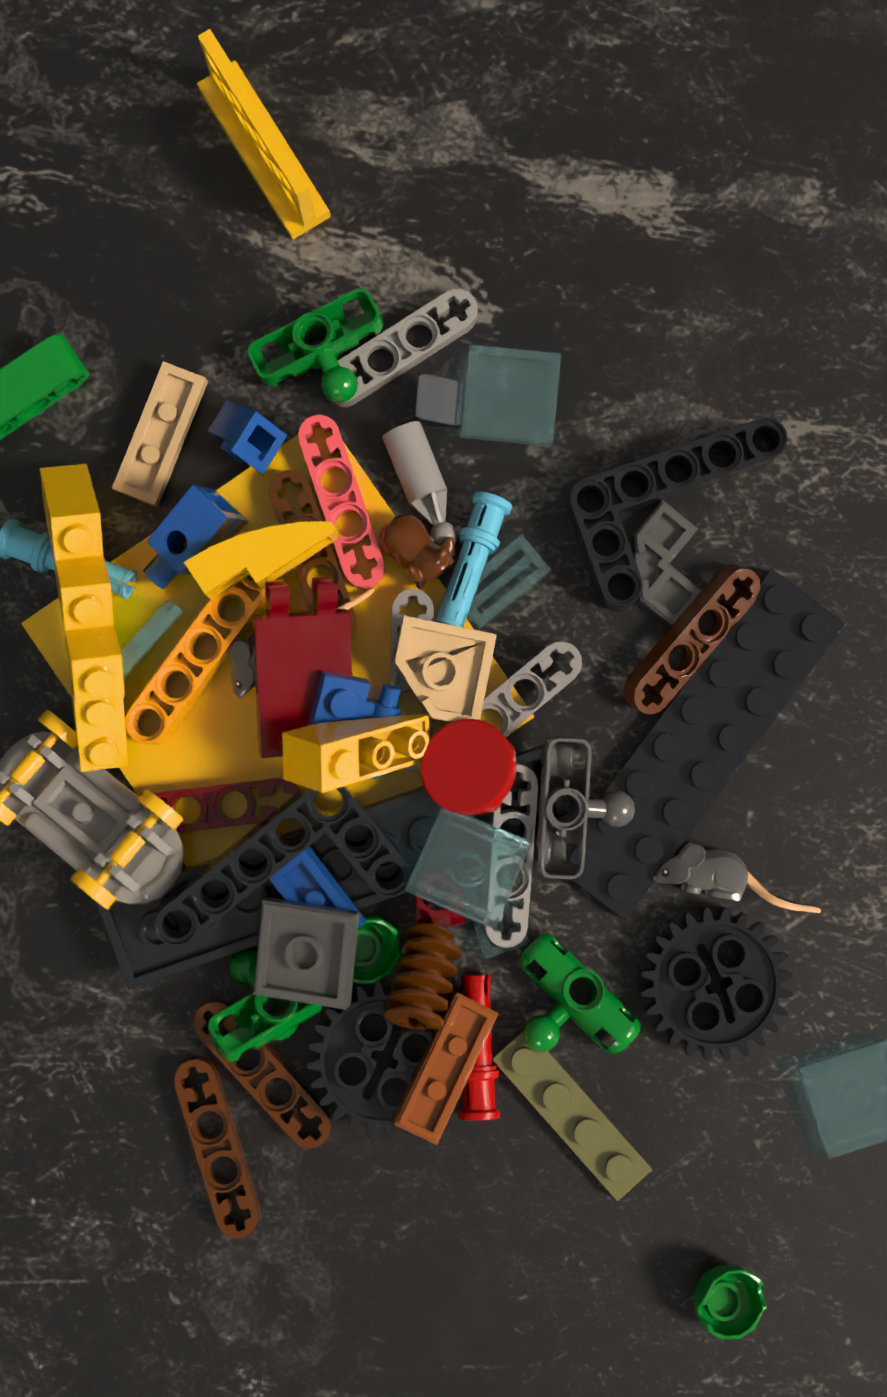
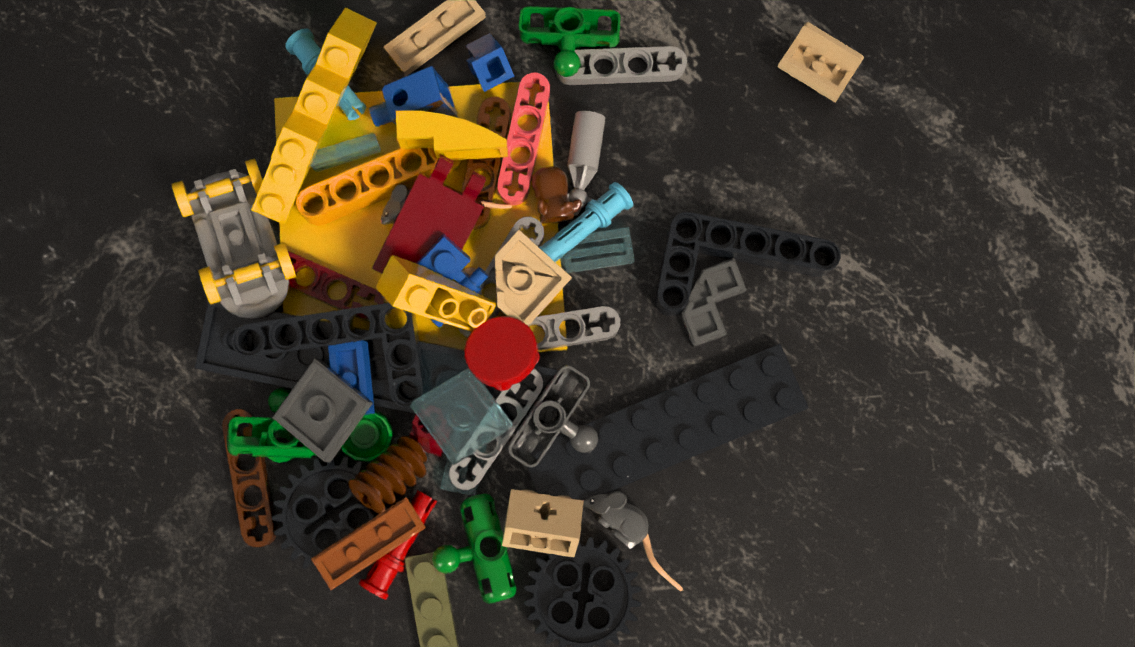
camera: 25 degrees right, 5 degrees down
(210, 1148) = (196, 509): reddish brown beam -> none
(438, 401) = (625, 112): slope -> none
(511, 395) = (674, 136): clear light blue tile -> none
(630, 210) = (821, 61): none -> tan bracket
(650, 932) = (543, 523): none -> tan brick
(687, 633) = (699, 353): reddish brown beam -> none

